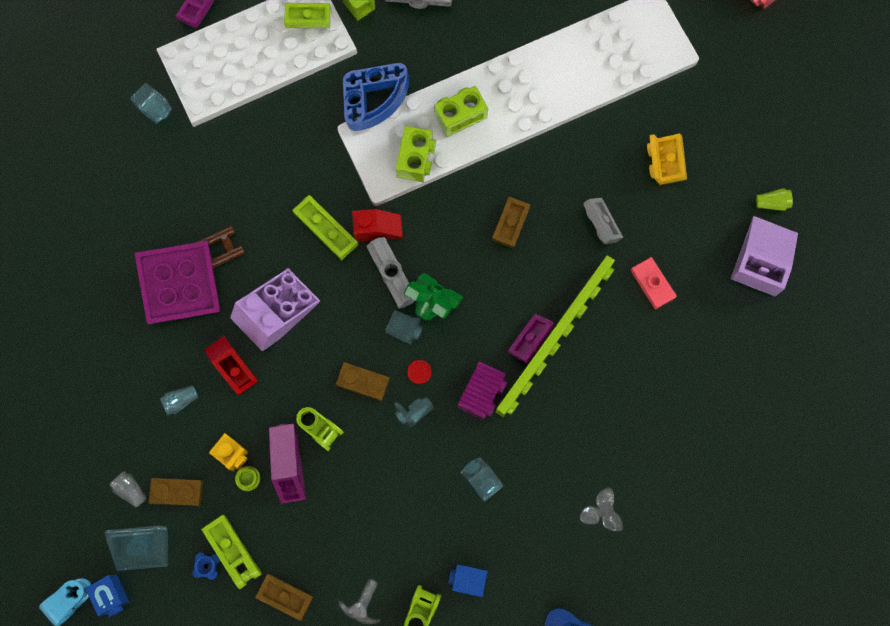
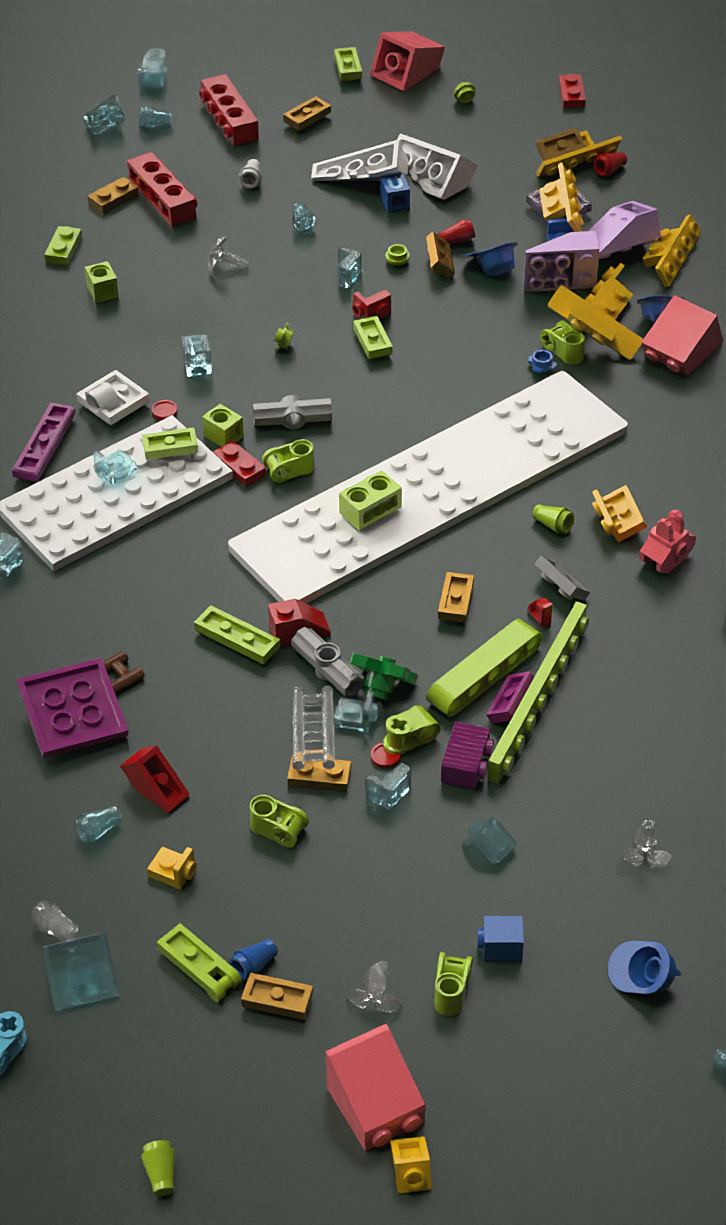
camera: 10 degrees left, 30 degrees down
(107, 596) = (51, 1030): blue brick -> none
(175, 492) = (114, 917): pearl gold plate -> none
(202, 559) = (169, 976): blue plate -> none
(247, 478) = (201, 887): lime plate -> none
(257, 31) = (114, 466): none -> clear light blue bracket
(273, 309) = (192, 719): lavender slope -> none
(273, 557) = (253, 958): none -> blue cone
(286, 463) = (249, 861): magenta slope -> none
(359, 89) = (247, 497): blue beam -> none
(364, 40) = (244, 466): none -> plate
(374, 351) = (325, 735): none -> clear bar
(404, 47) = (291, 460): none -> lime piece
(412, 154) = (327, 544): lime brick -> none
(447, 354) = (410, 730): none -> lime piece
(517, 302) = (484, 667): none -> lime beam
(577, 251) = (541, 611): none -> red tile
(612, 153) = (556, 518): none -> lime cone
(653, 283) = (638, 628): coral plate -> none
(699, 205) = (668, 543): none -> coral hinge

